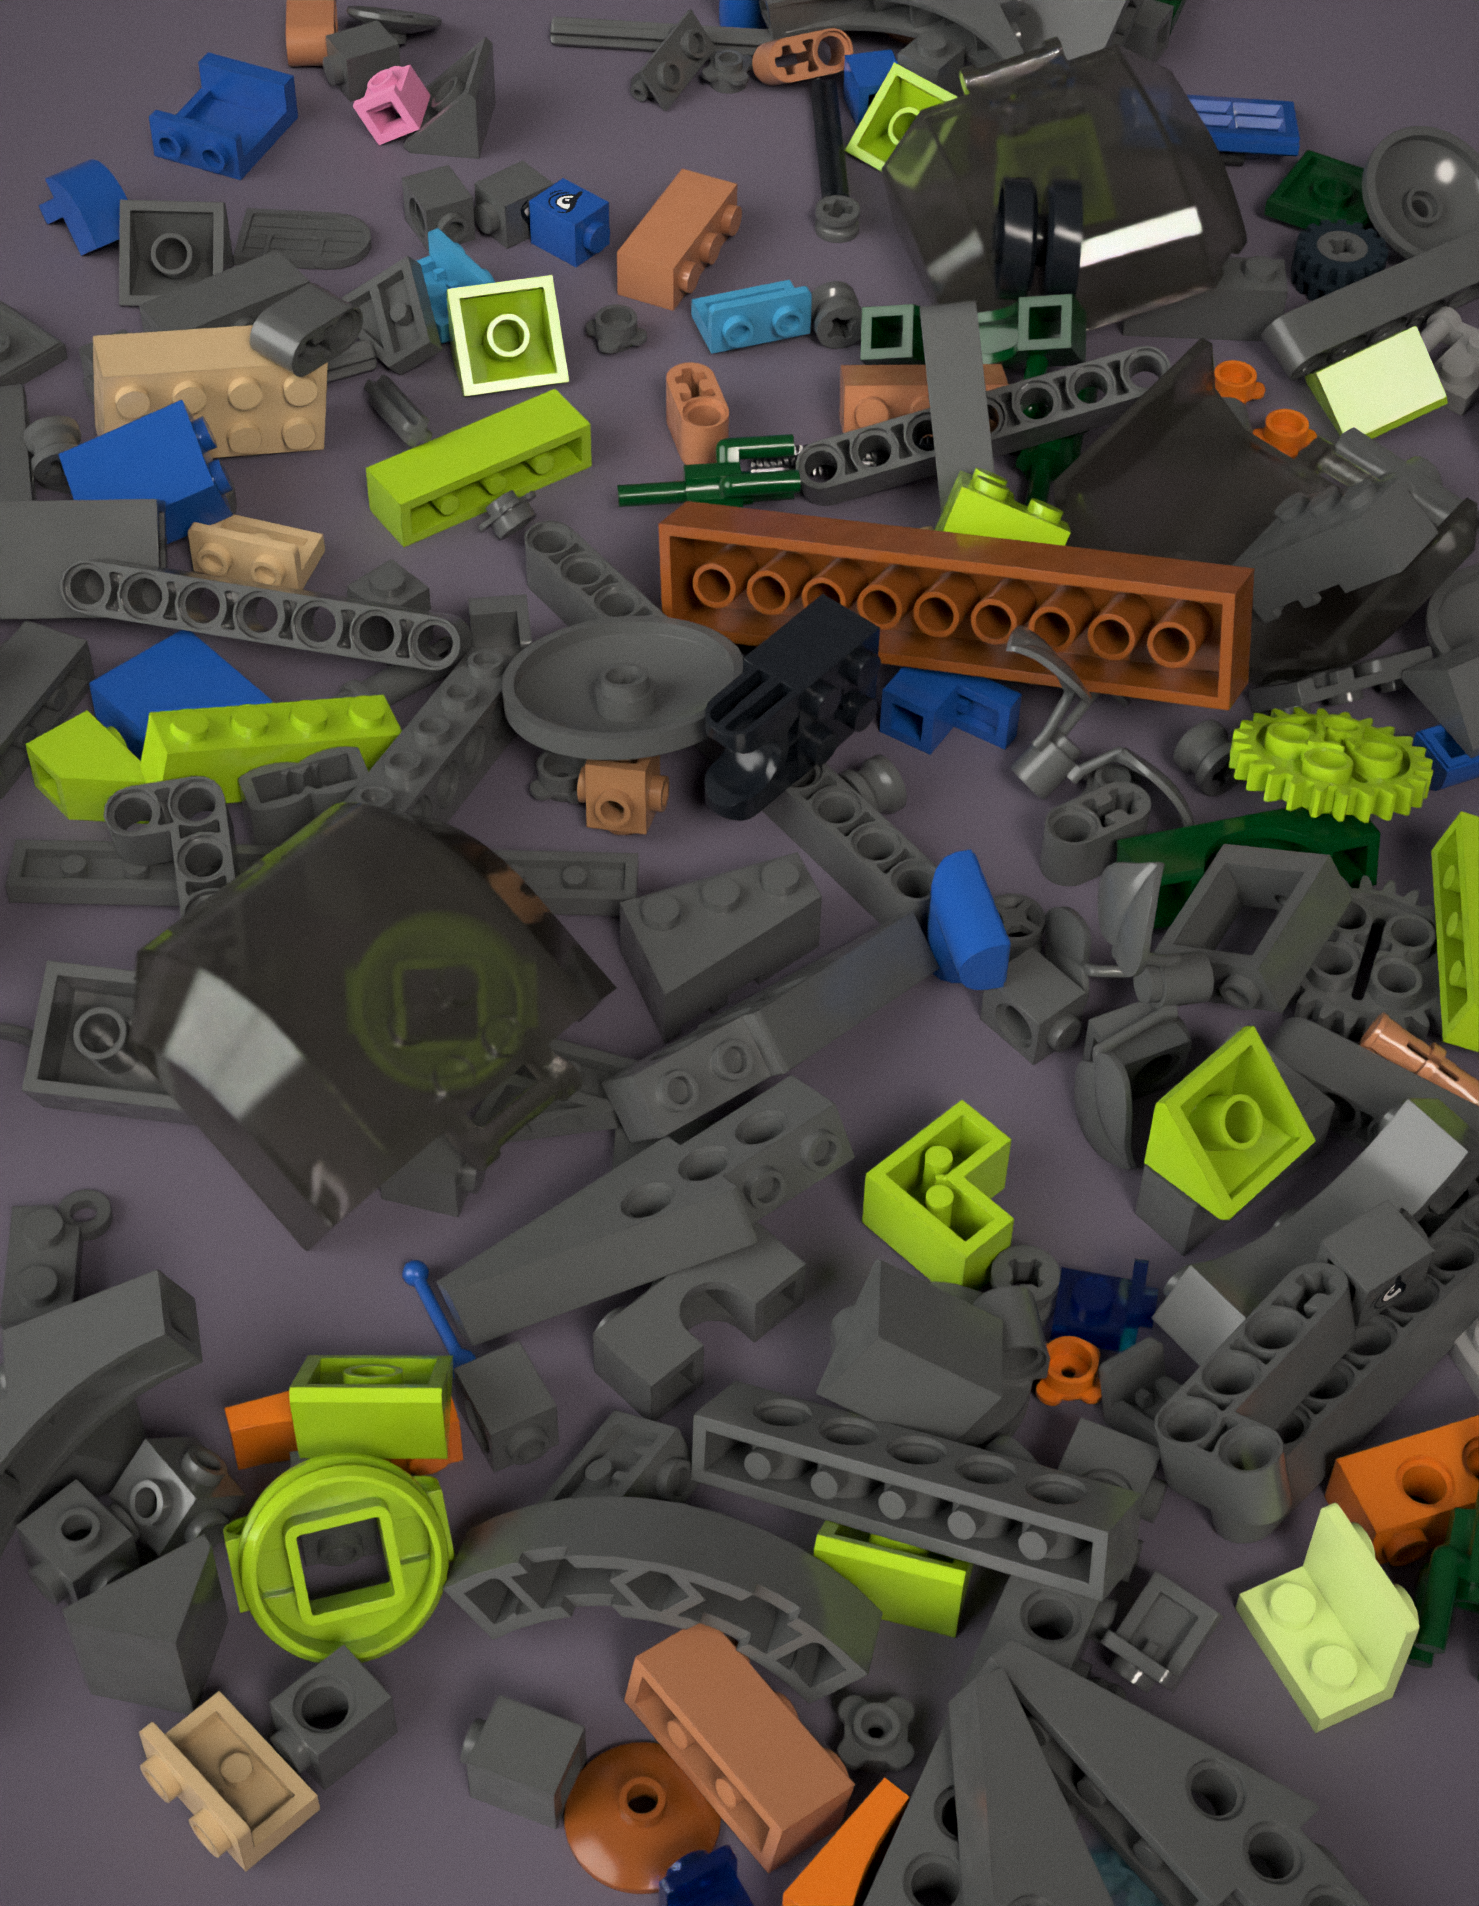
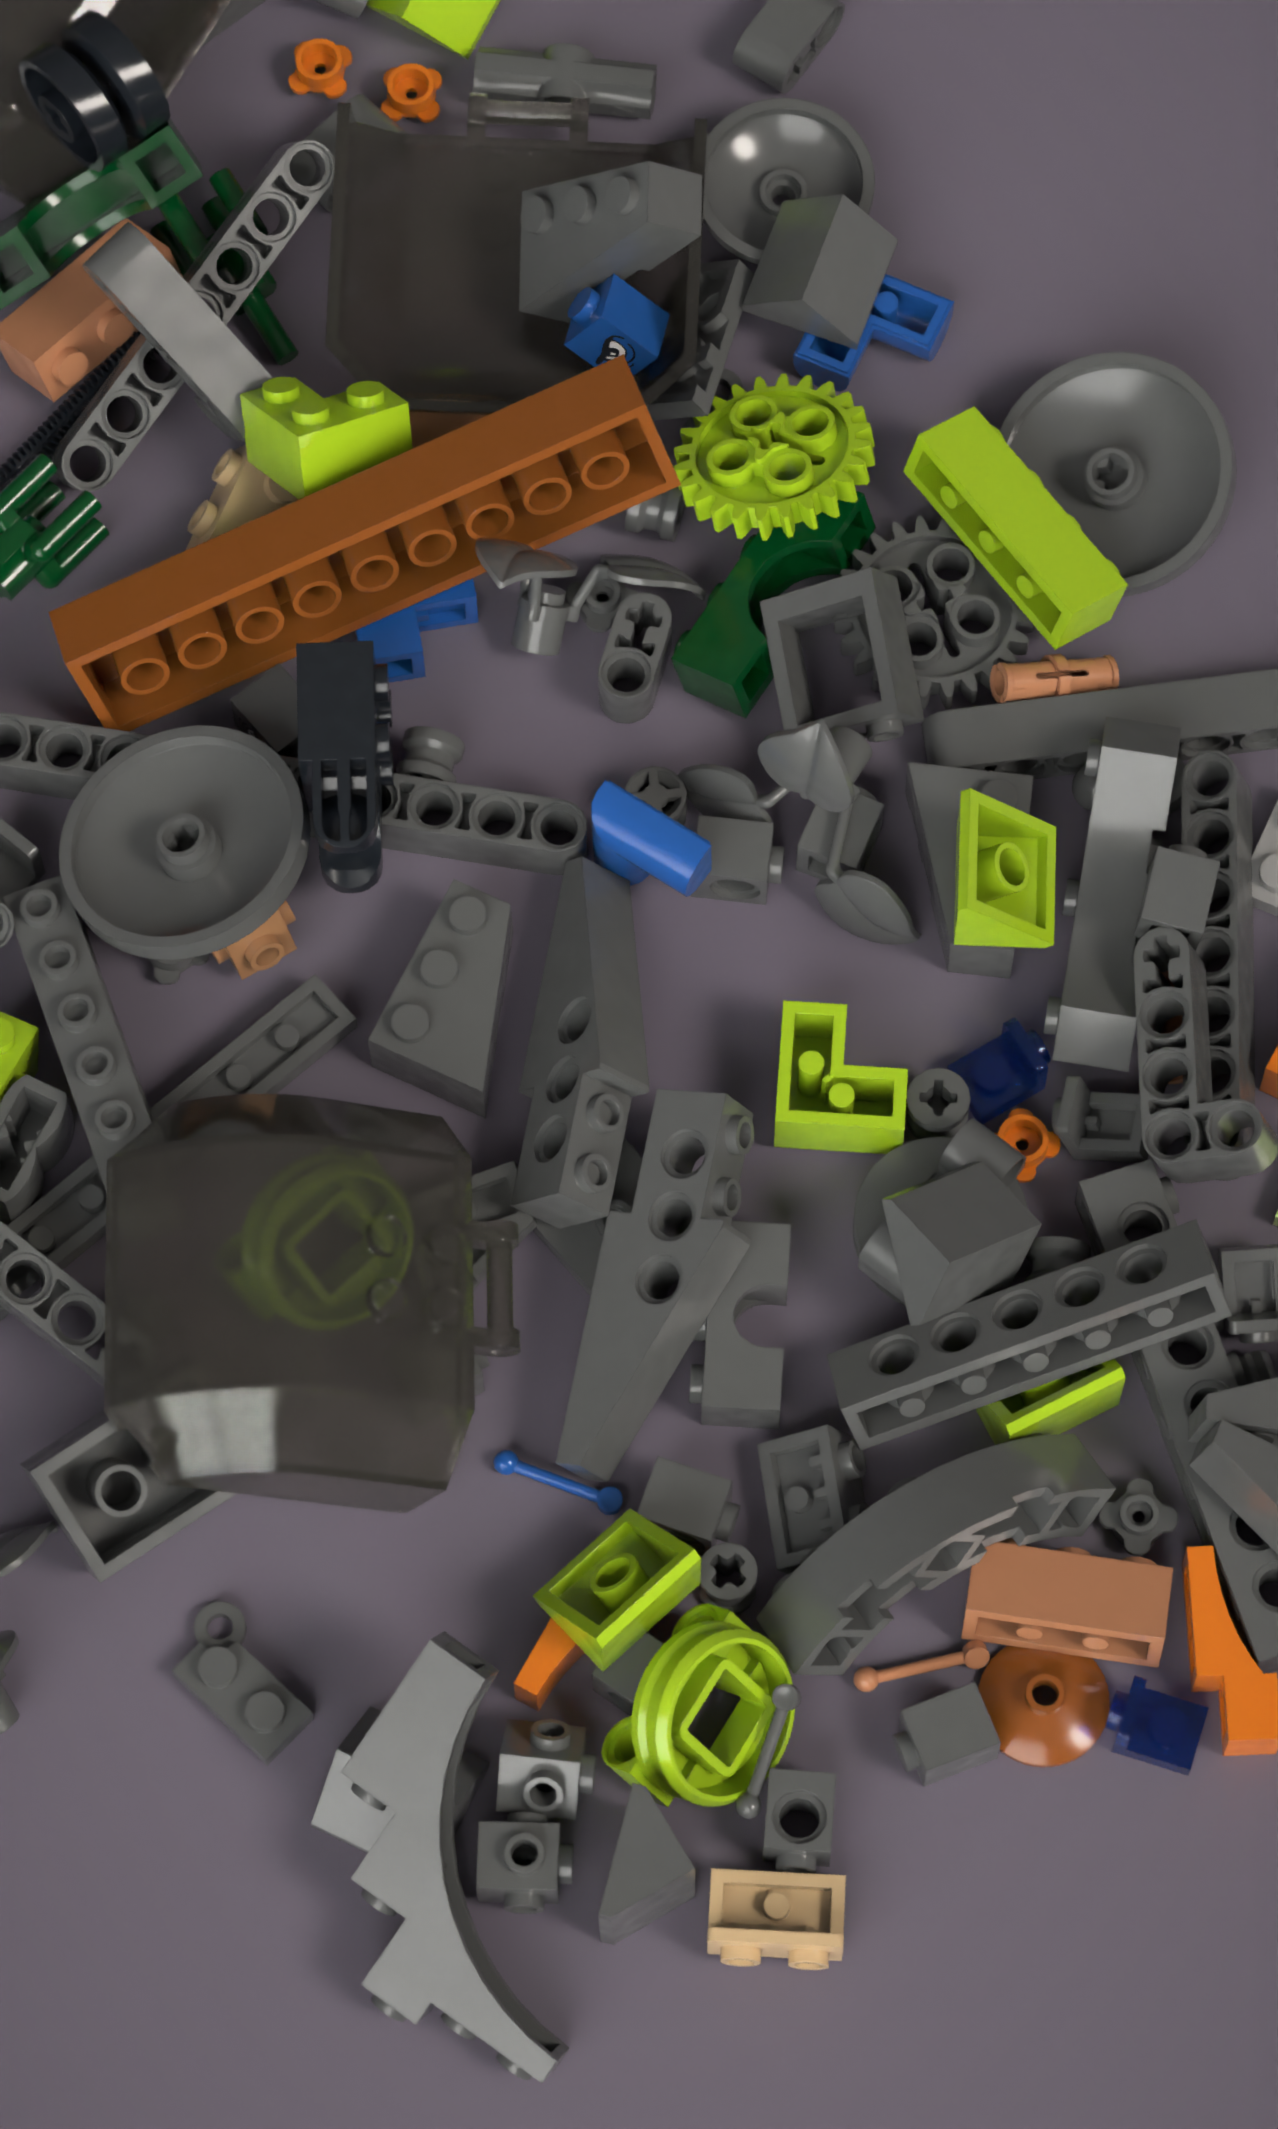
camera: 40 degrees left, 20 degrees up
(410, 1596) = (785, 1698): none -> dark grey hinge
(479, 1482) = (726, 1559): none -> dark grey bush
(620, 1724) = (973, 1654): none -> nougat hinge
(1288, 616) = (615, 322): none -> blue brick

